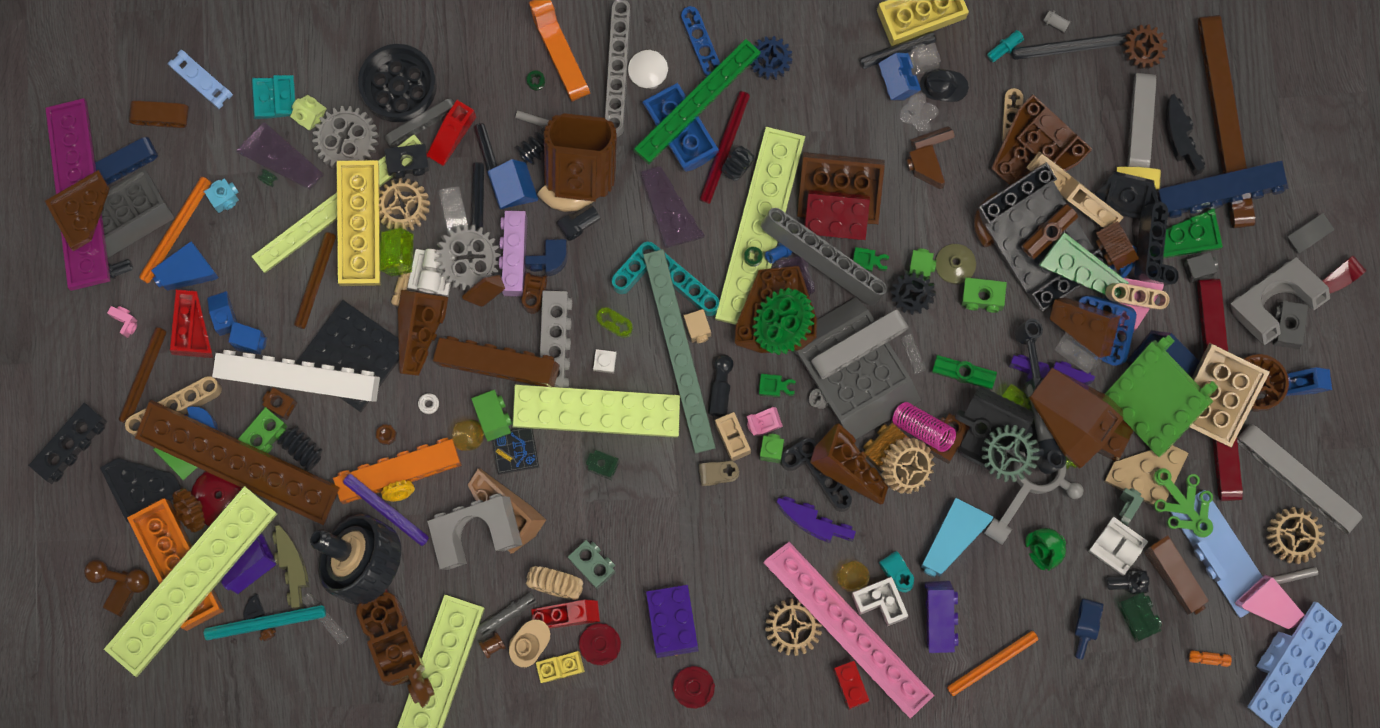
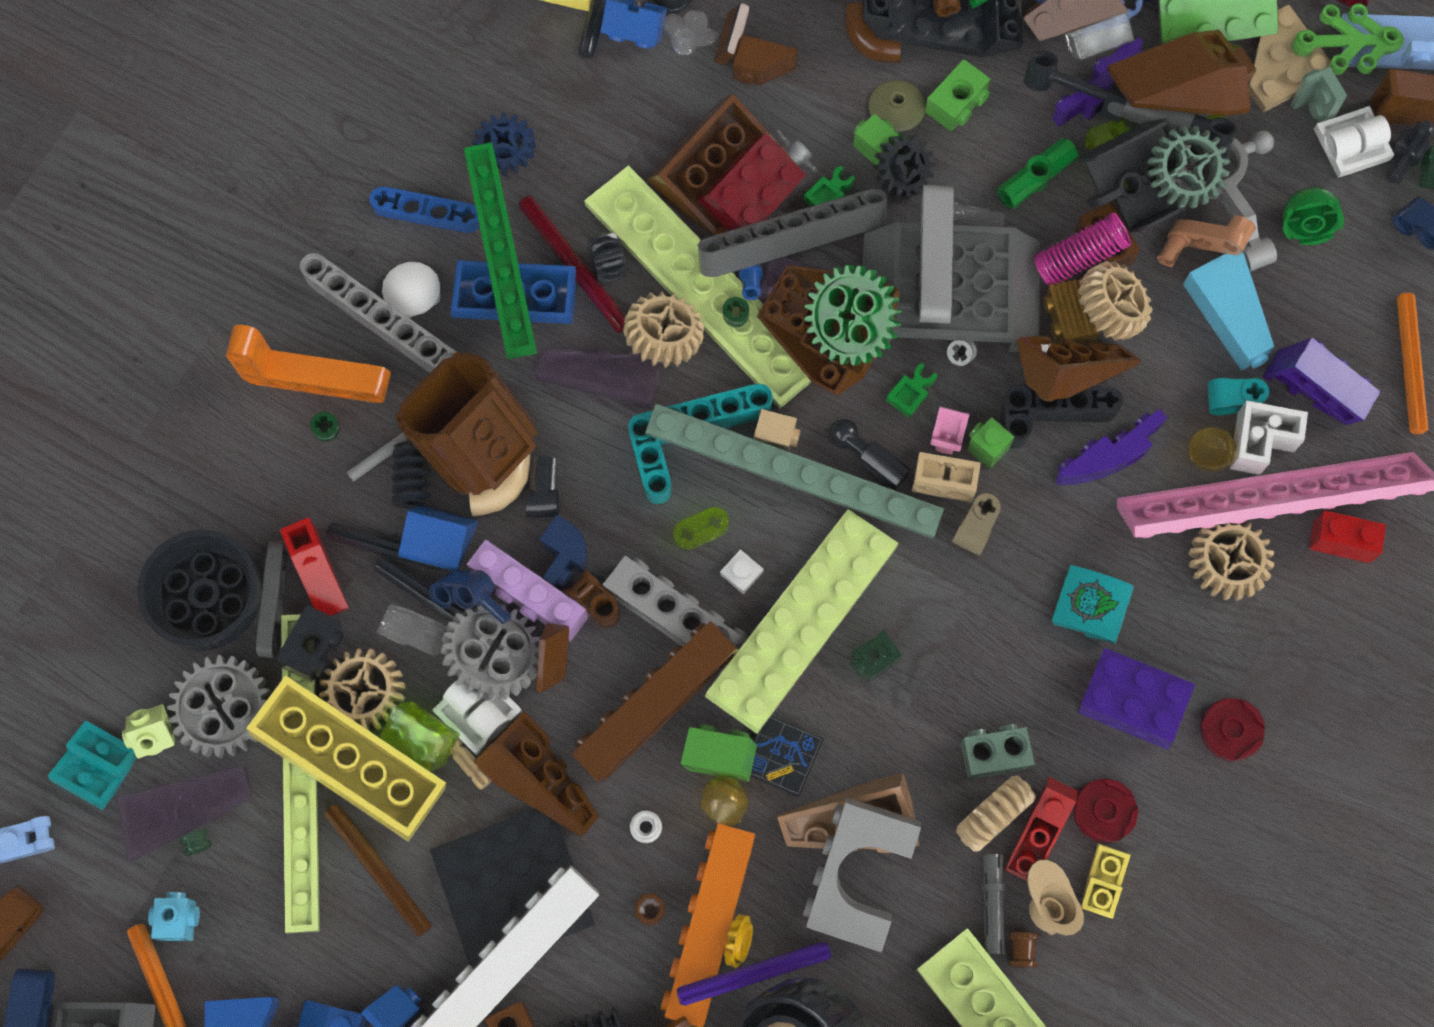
camera: 60 degrees left, 5 degrees down
(490, 221) = (467, 590): none -> dark blue beam
(714, 565) = (1093, 604): none -> teal slope
(719, 239) = (646, 322): none -> tan gear
(876, 225) = (797, 152): none -> clear plate
(991, 508) = (1206, 236): none -> nougat beam

